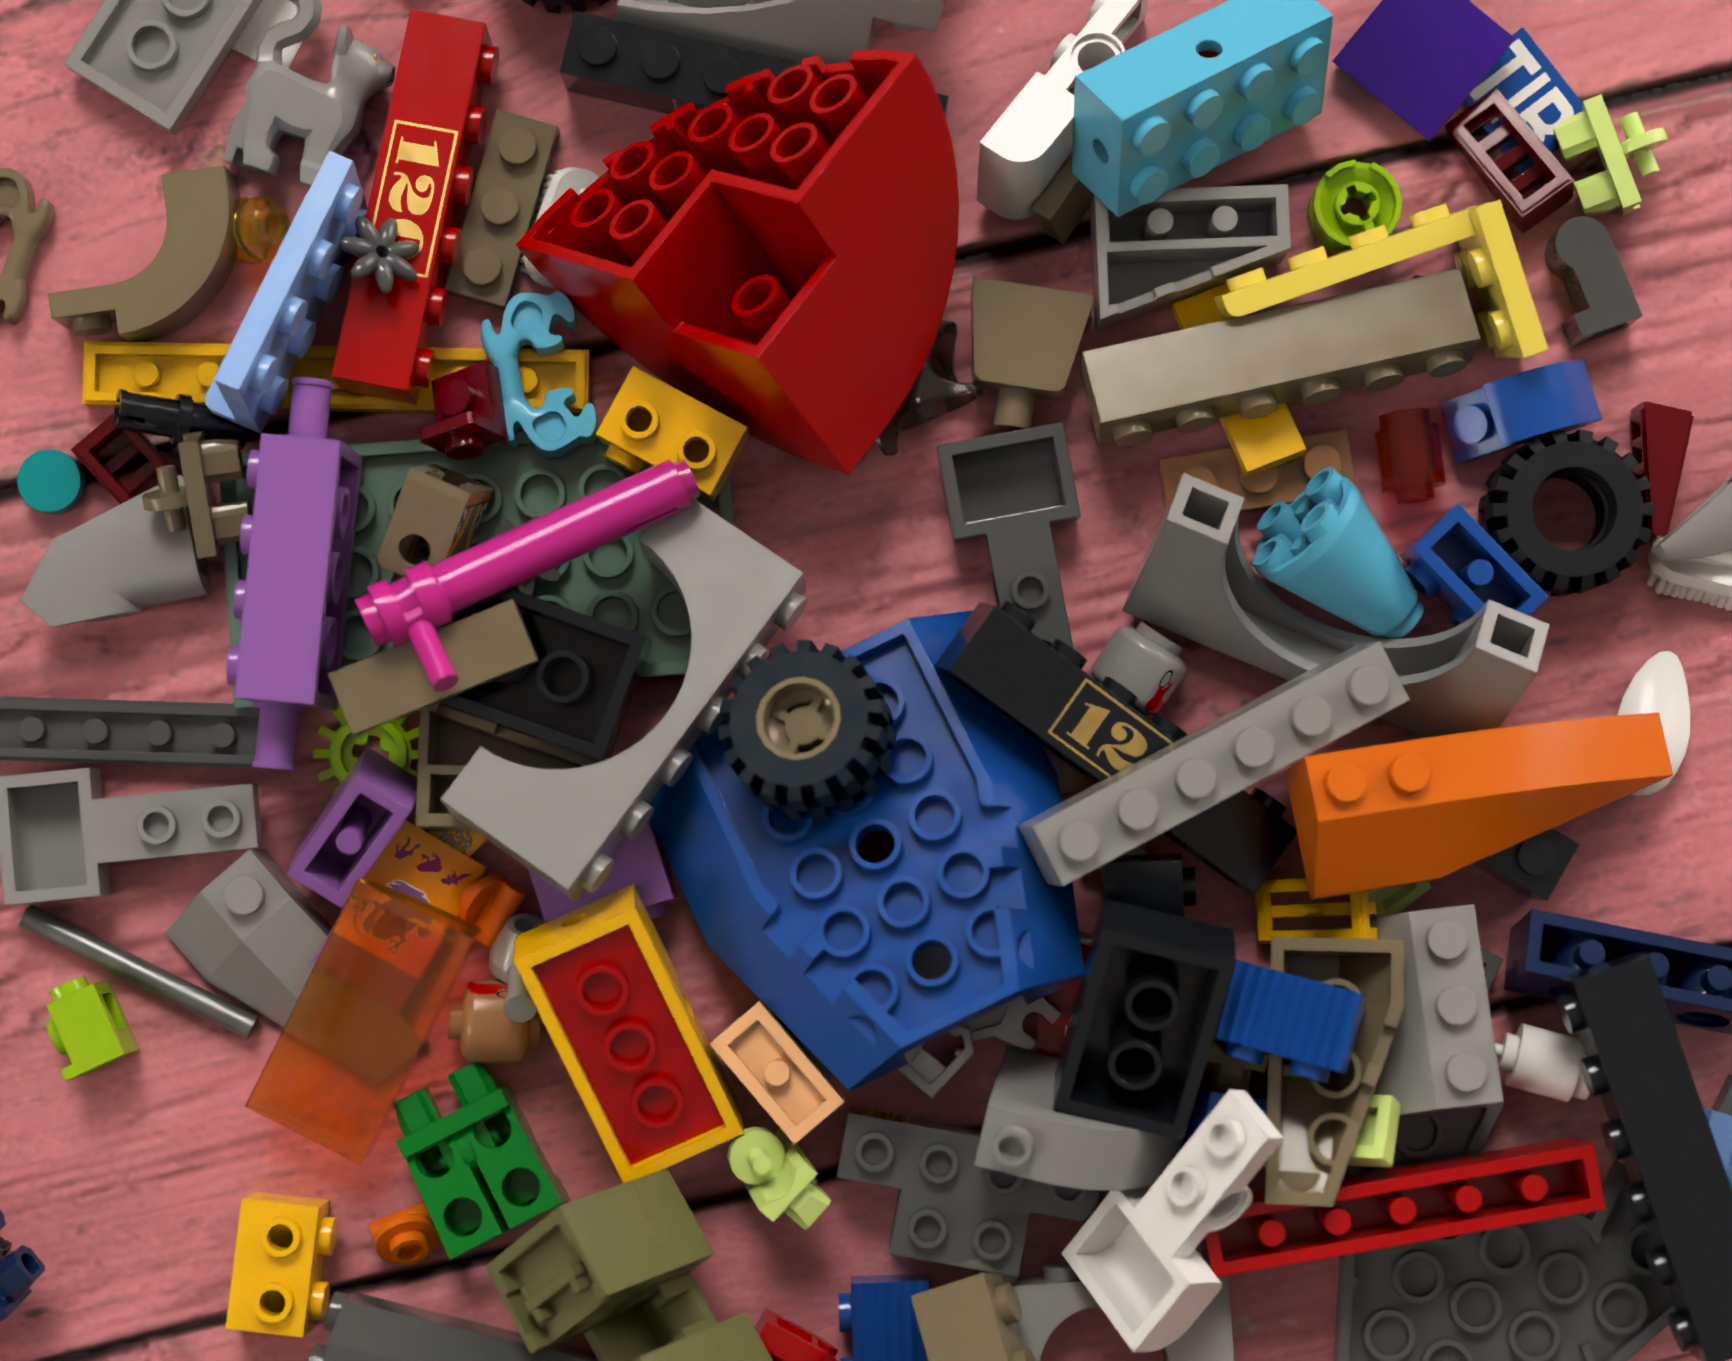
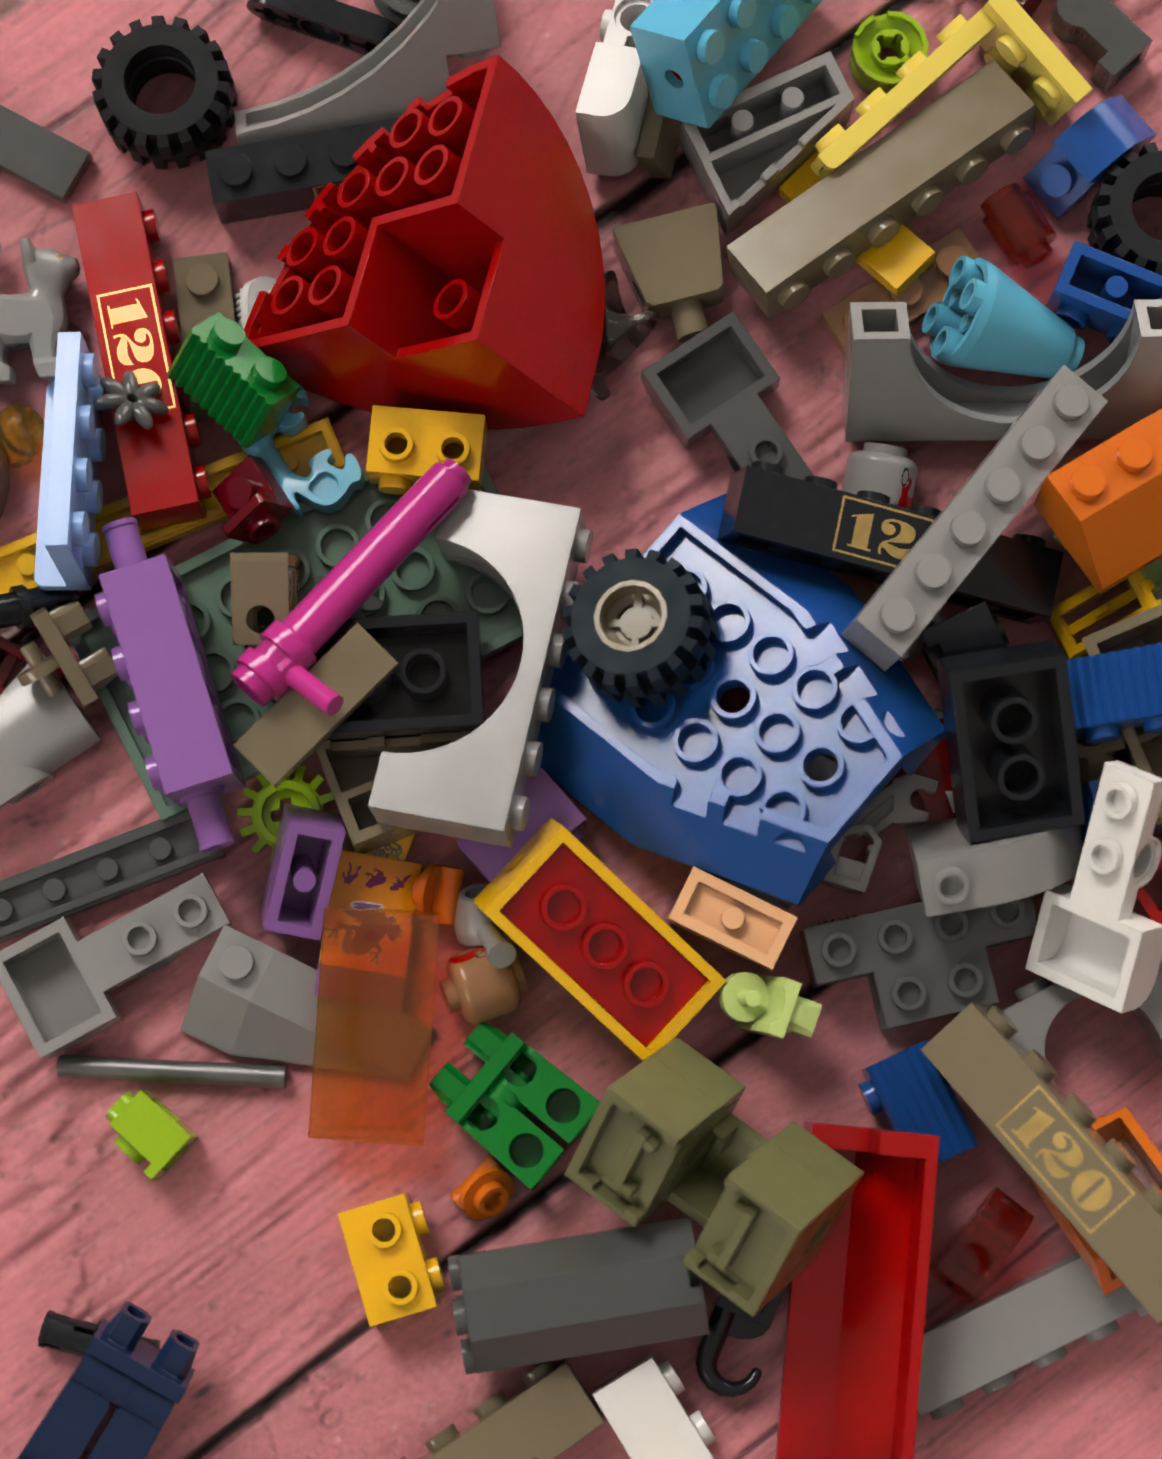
camera: 25 degrees left, 5 degrees down
(497, 275) = (233, 379): none -> green brick

